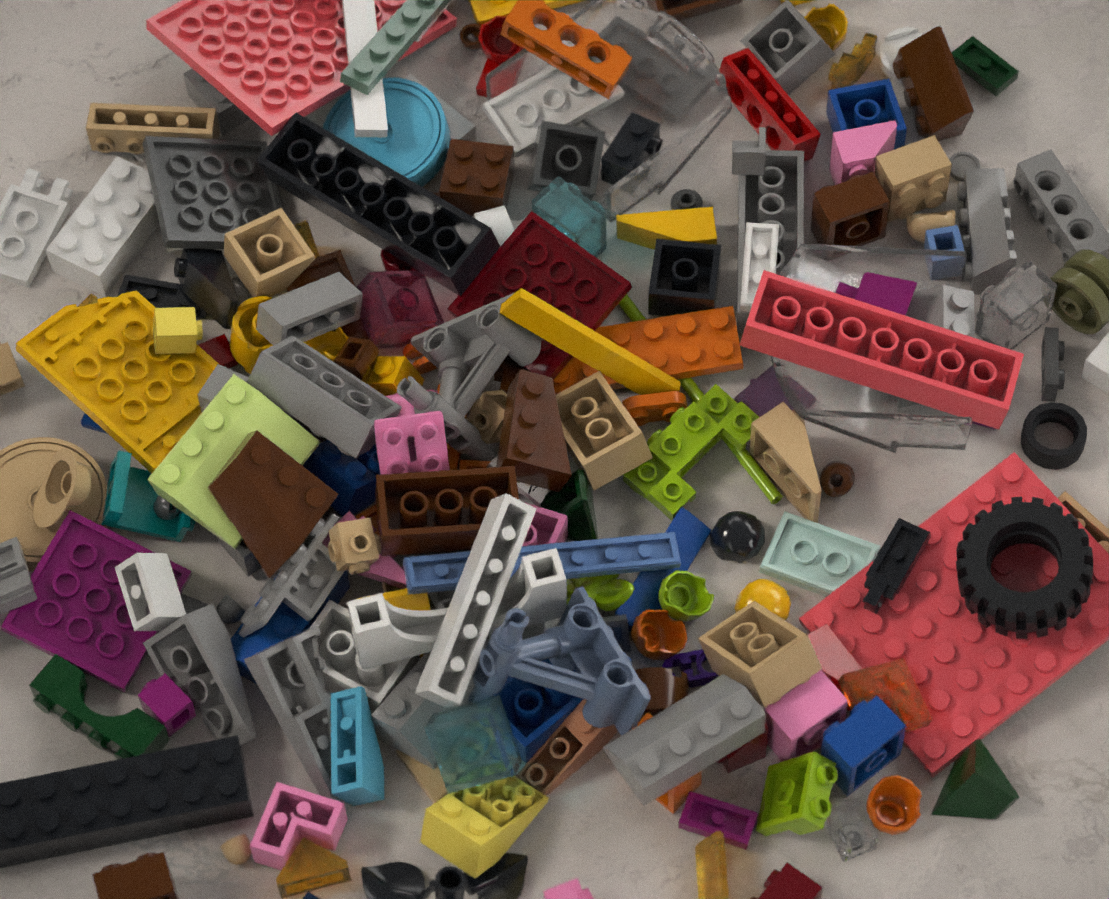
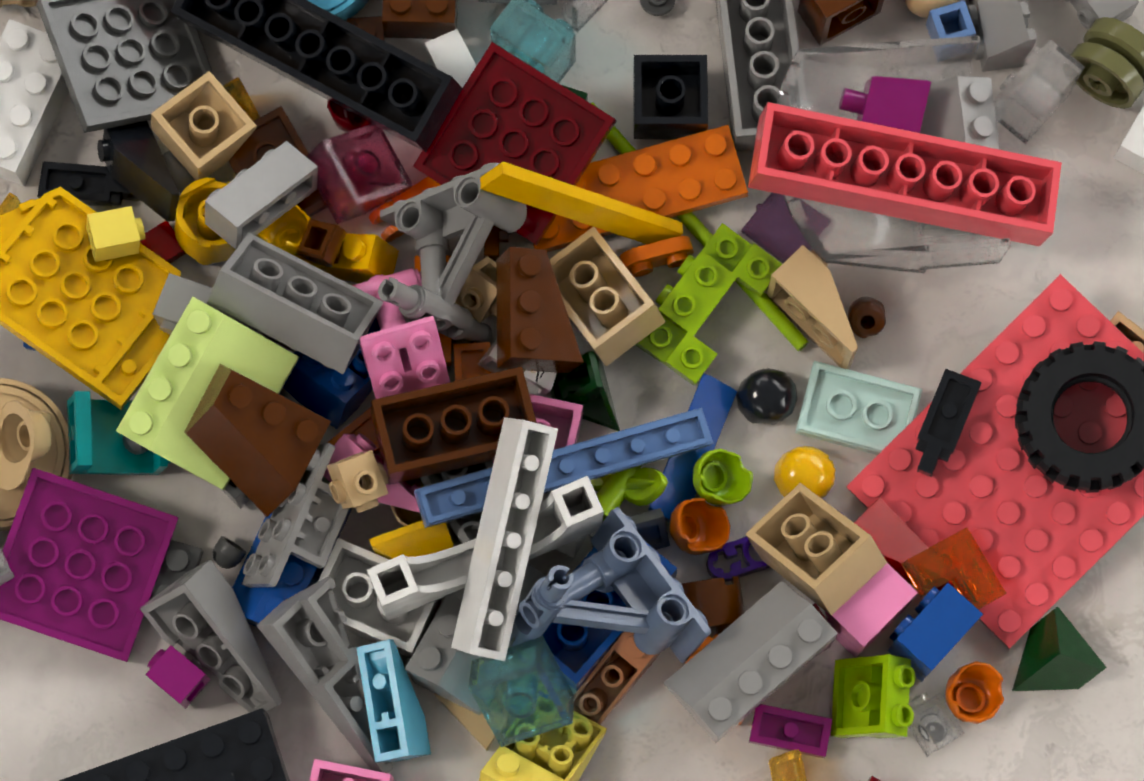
camera: 10 degrees left, 15 degrees up
(63, 690) = (62, 671): dark green arch -> none
(150, 591) = (142, 555): white brick -> none
(679, 225) = (652, 33): yellow slope -> none
(759, 255) = (752, 74): white tile -> none
(1051, 353) = (1080, 137): dark grey plate -> none
(1059, 414) = (1112, 216): black tyre -> none

